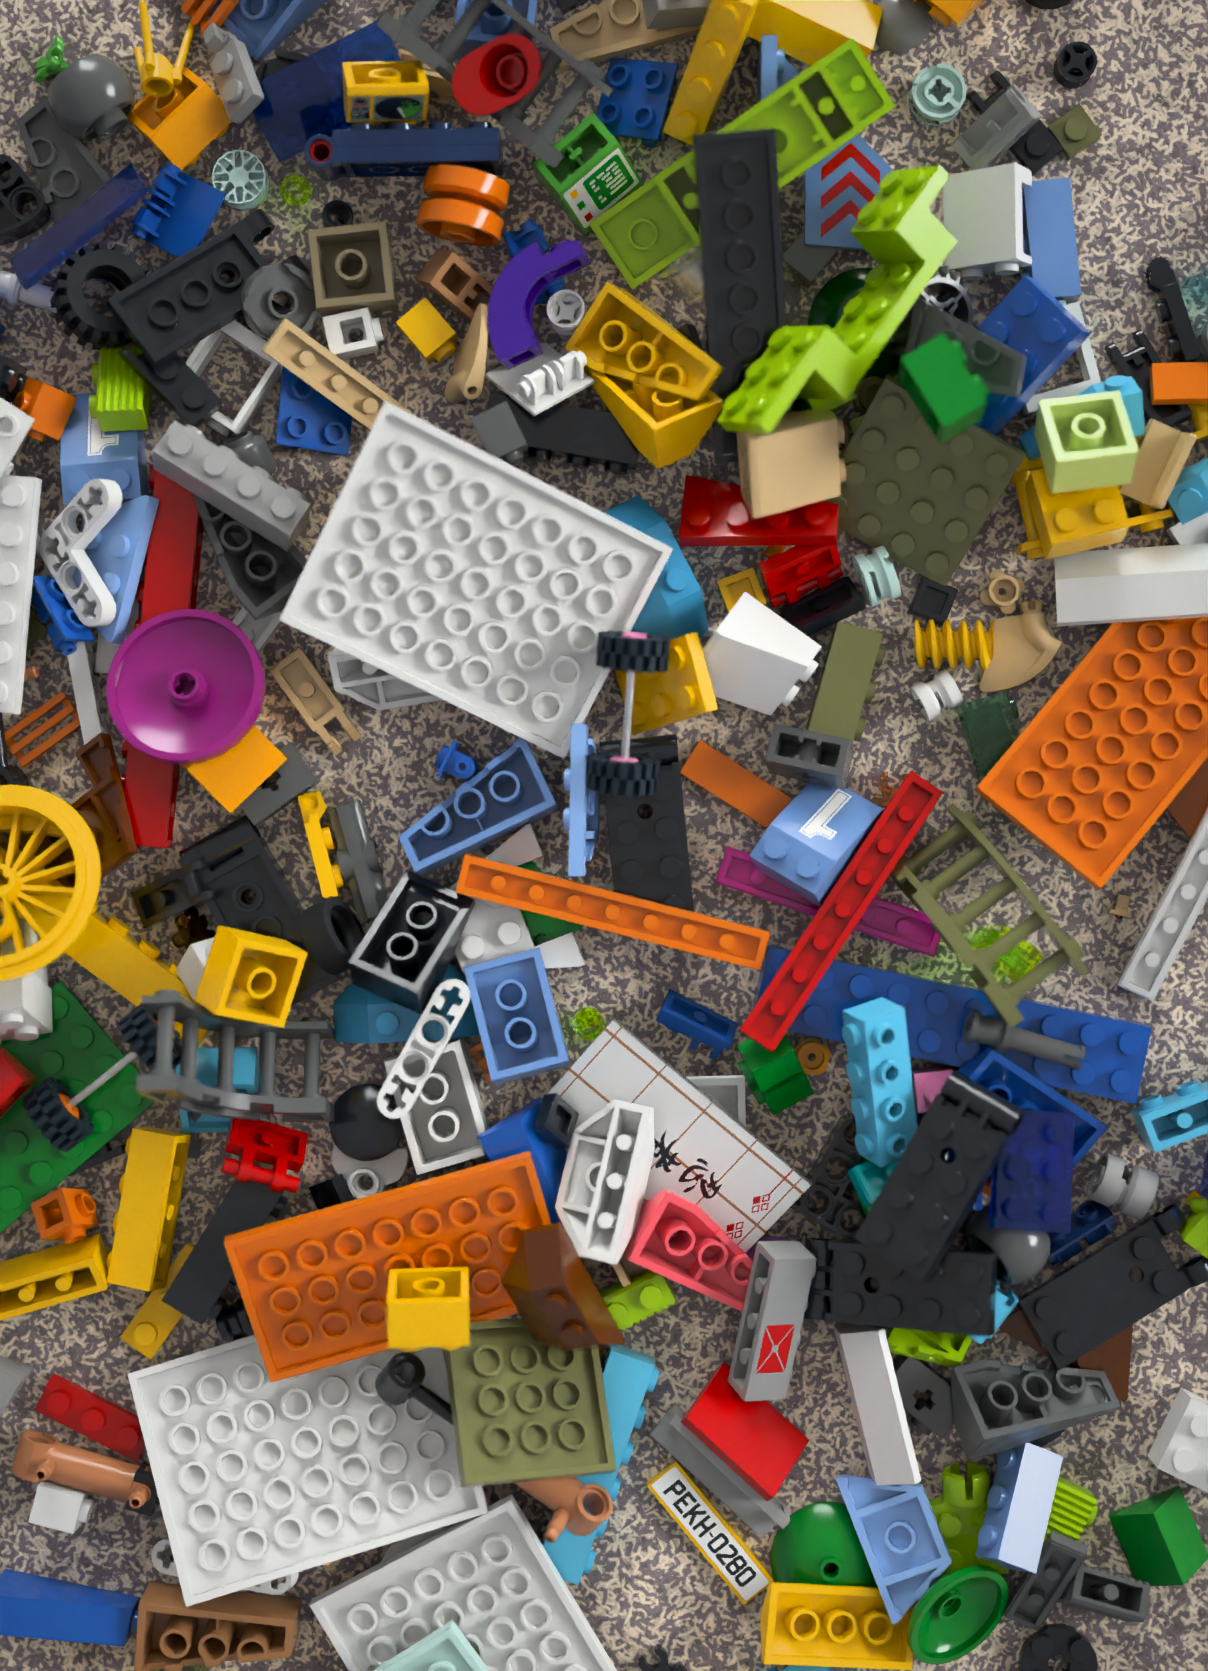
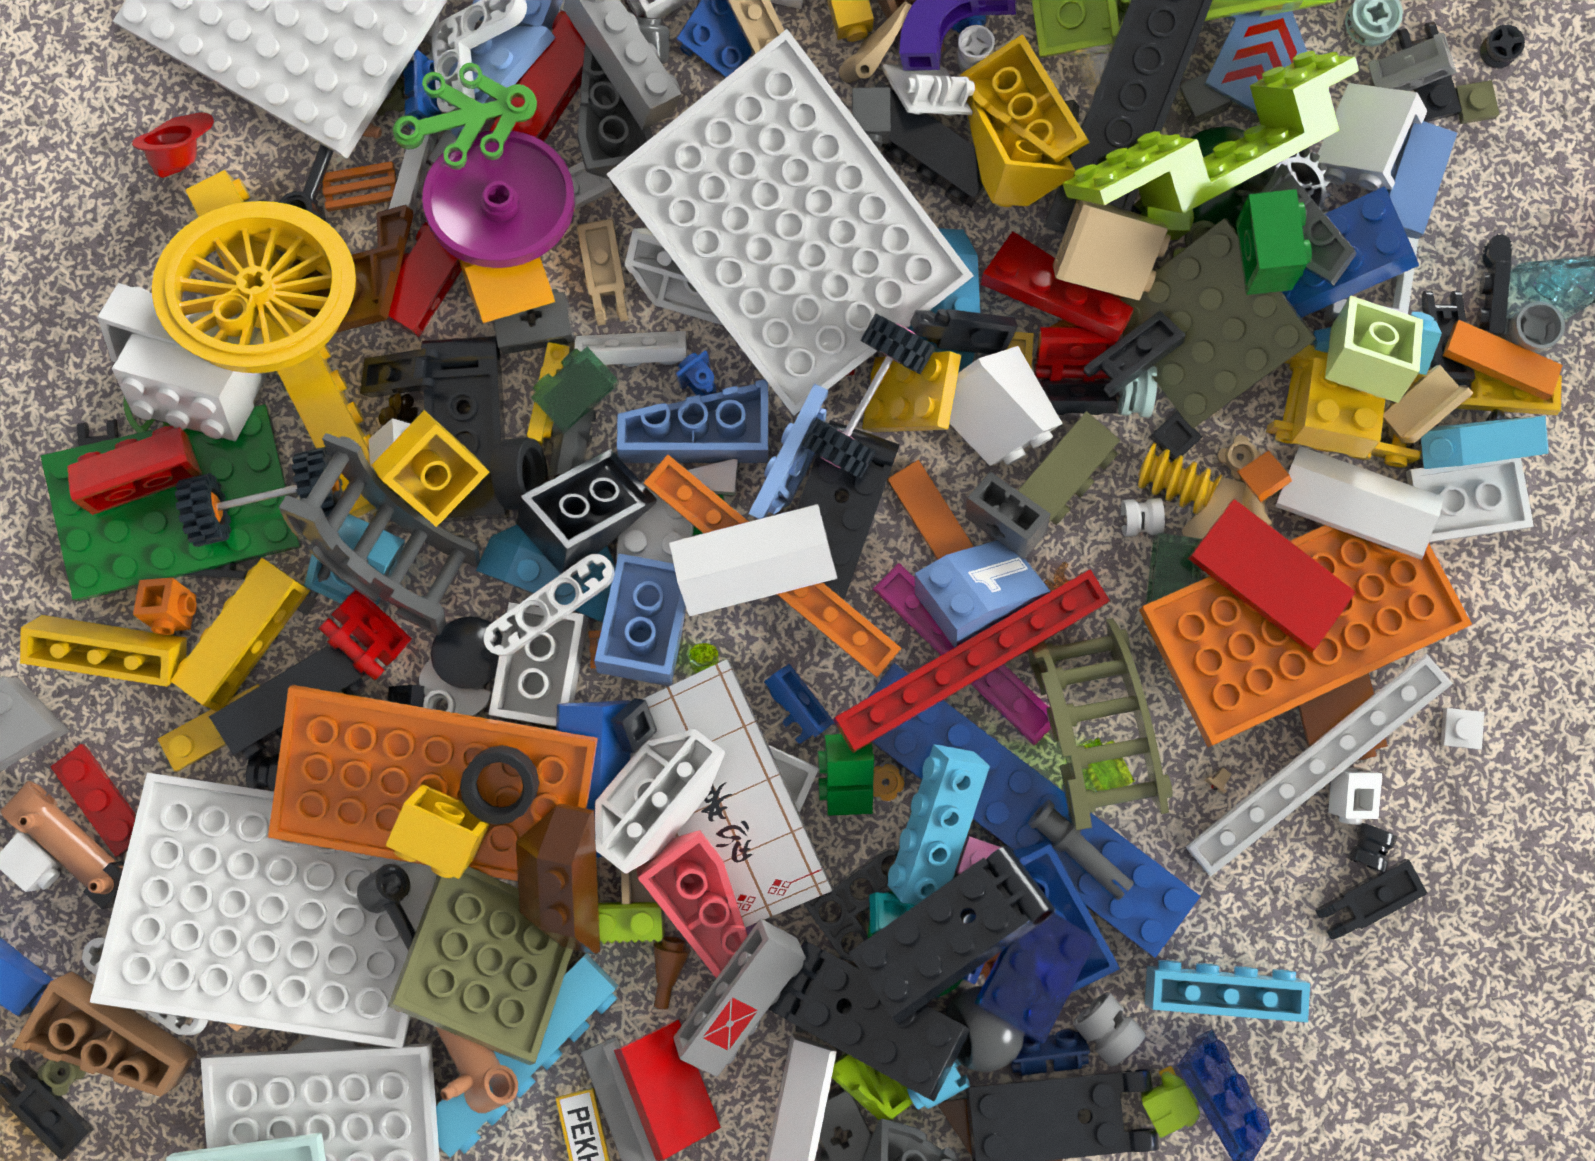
camera: 30 degrees right, 5 degrees down
(120, 618) = (471, 115): none -> bright green plant
(347, 833) = (574, 388): none -> clear green brick
(378, 764) = (636, 348): none -> white plate
(461, 1267) = (478, 806): none -> black tyre
(593, 917) = (752, 560): none -> white slope
(688, 602) = (965, 330): none -> black hinge
(691, 1316) = (669, 961): none -> dark orange cone
(860, 545) = (1137, 352): none -> black hinge
(1034, 603) = (1264, 476): none -> orange tile
(1084, 698) = (1272, 575): none -> red tile

